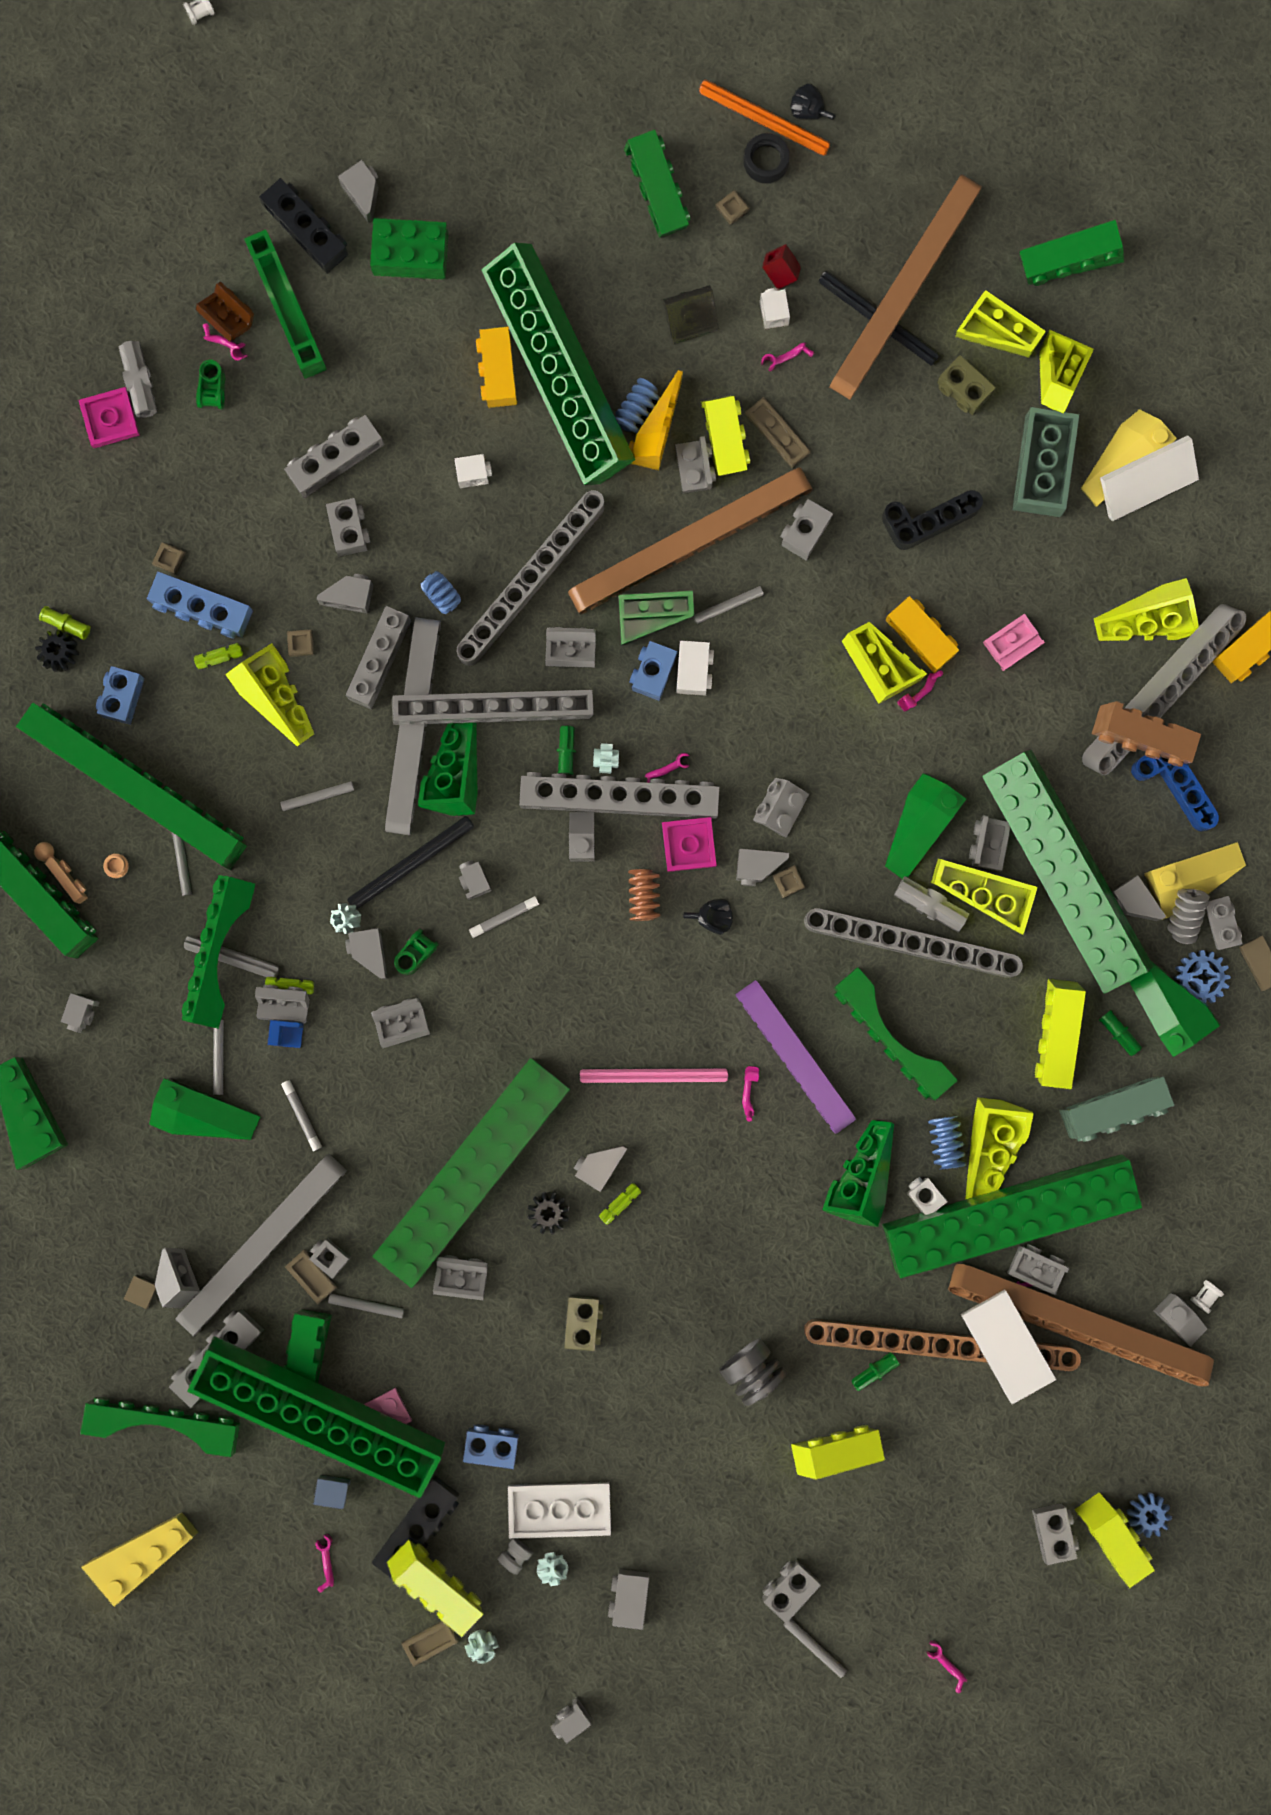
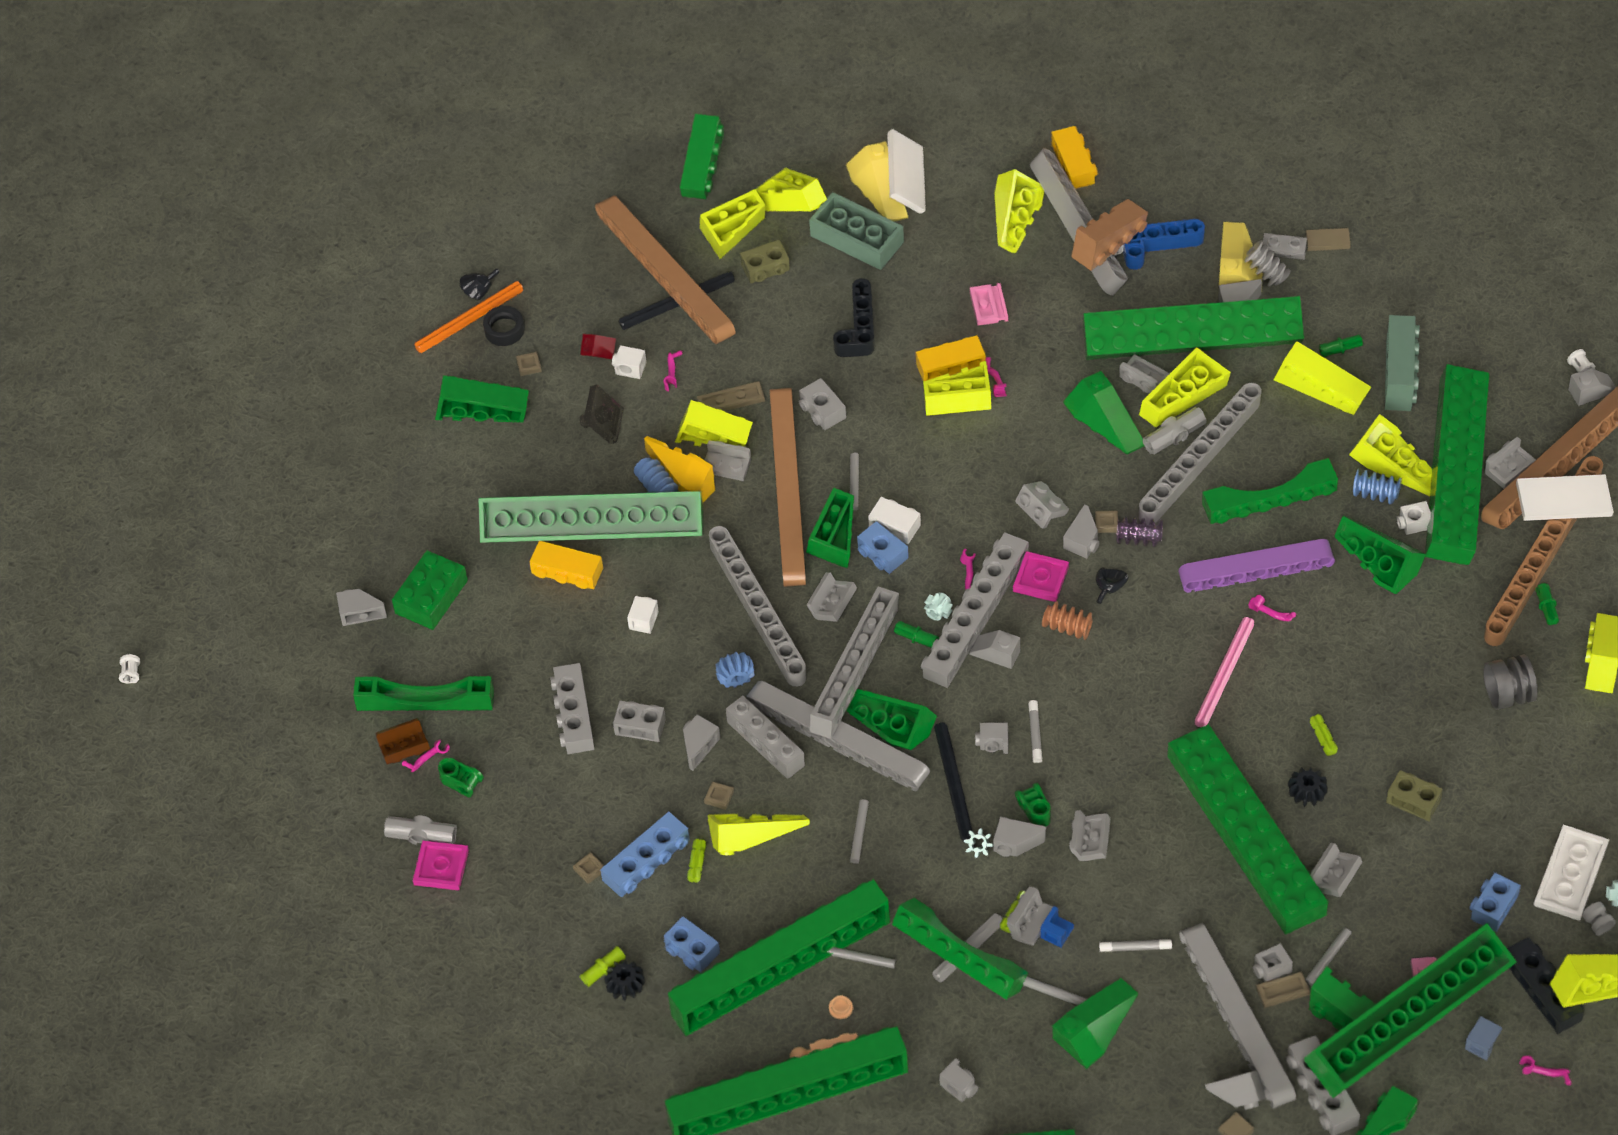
camera: 60 degrees left, 30 degrees down
(282, 195) = (374, 662): black brick -> none
(599, 1166) = (1286, 735): light grey slope -> none
(784, 922) = (1139, 531): none -> clear purple piece
(1173, 1011) = (1339, 301): green wedge -> none
(1202, 967) = (1320, 278): medium blue gear -> none

